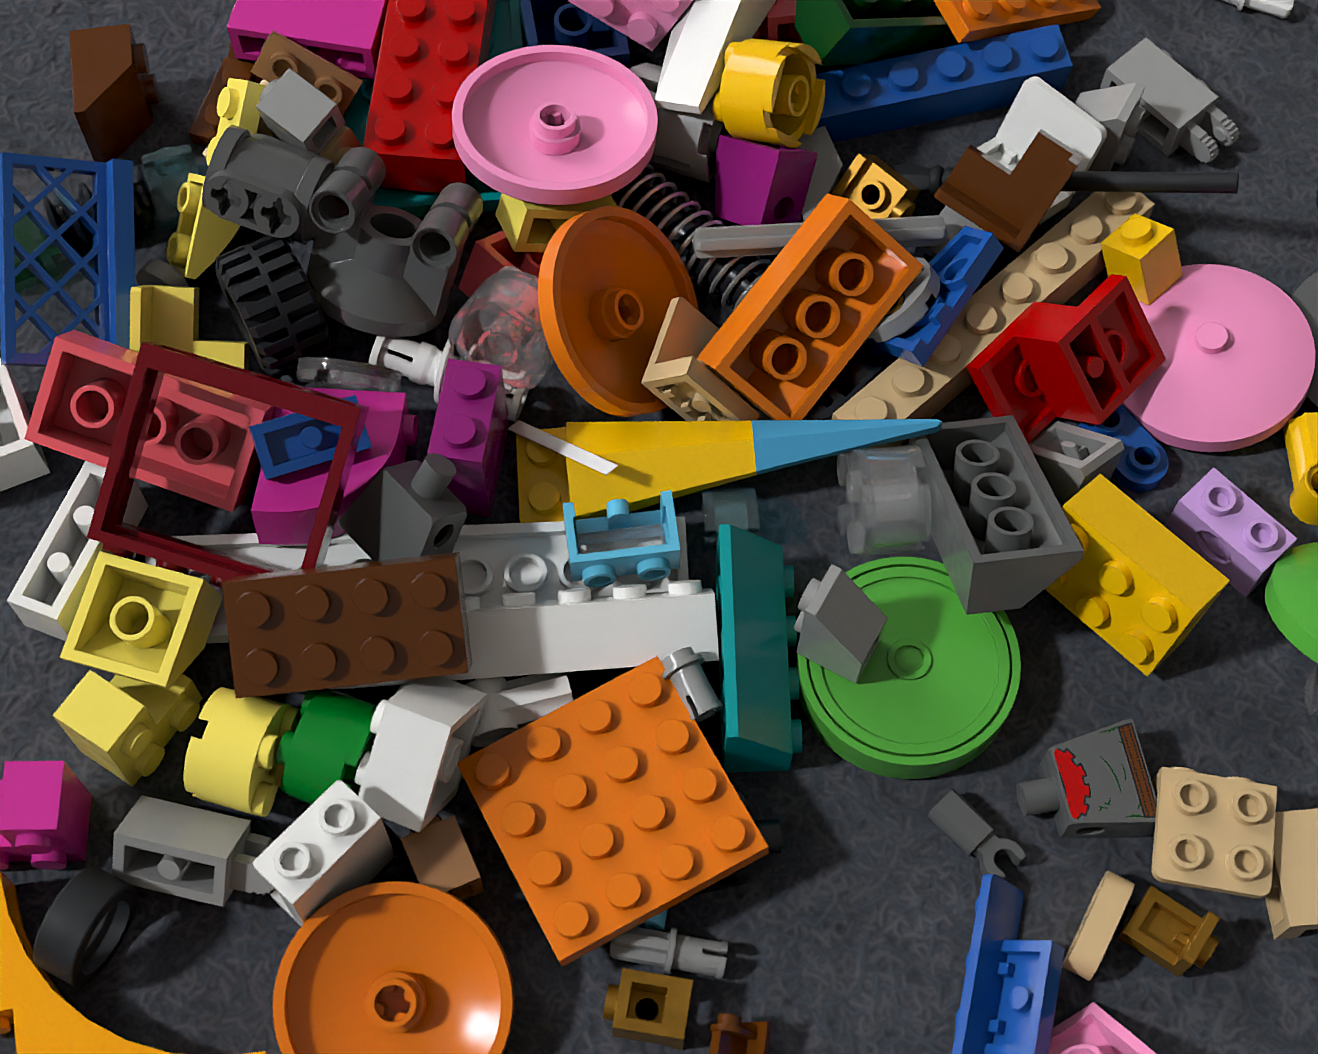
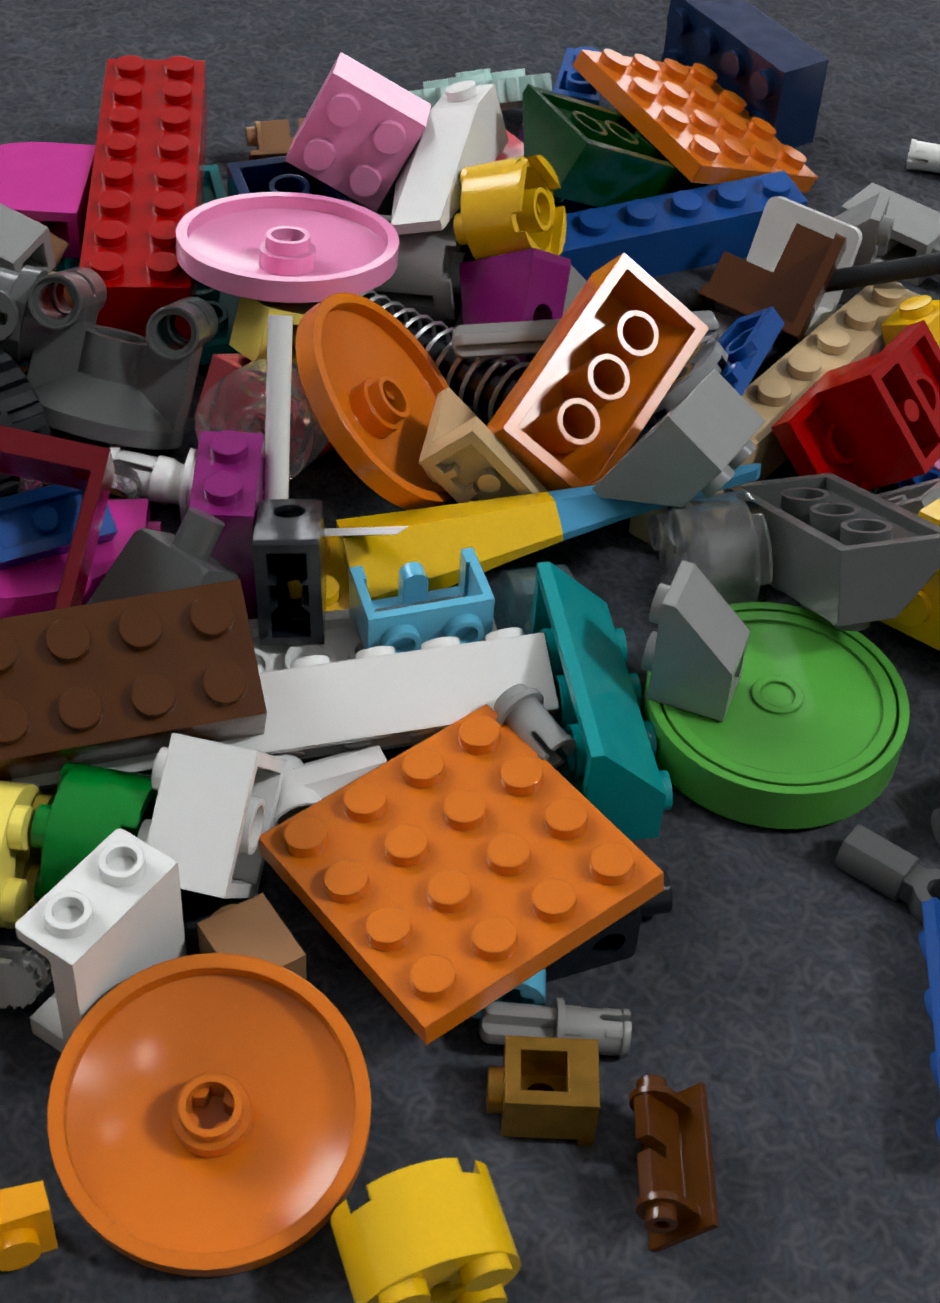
camera: 10 degrees left, 20 degrees down
(514, 476) = (287, 548): none -> black torso
(515, 363) = (278, 407): none -> white bar
(871, 410) = (687, 449): none -> light grey slope

